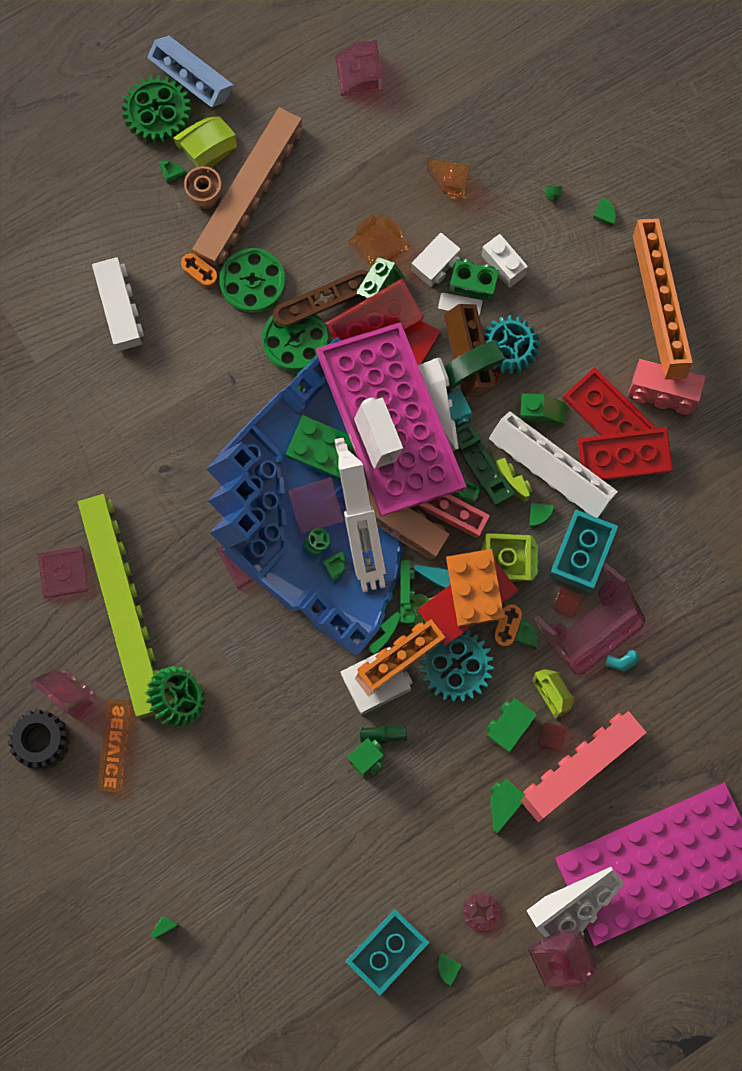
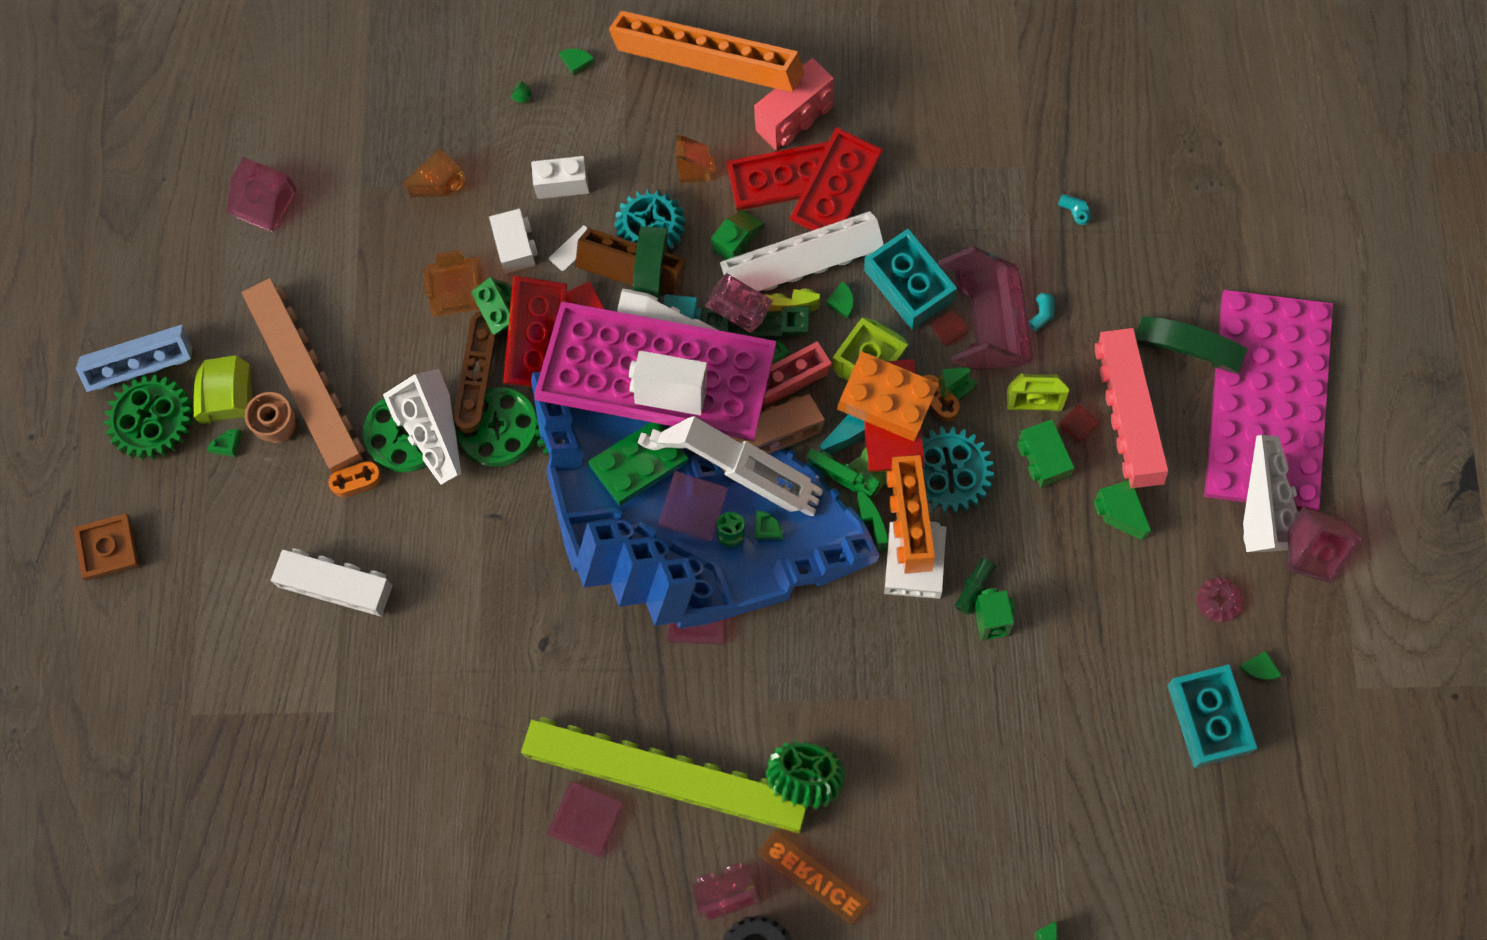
camera: 55 degrees left, 5 degrees down
(53, 144) = (106, 547): none -> dark orange plate
(272, 284) = (426, 414): none -> white wedge
(472, 286) = (564, 221): green brick -> none
(483, 443) = (738, 303): none -> clear pink brick
(523, 627) = (952, 380): none -> green slope
(576, 343) = (693, 160): none -> clear orange slope
(663, 782) = (1191, 341): none -> dark green slope
(723, 638) = (1078, 208): none -> teal arm

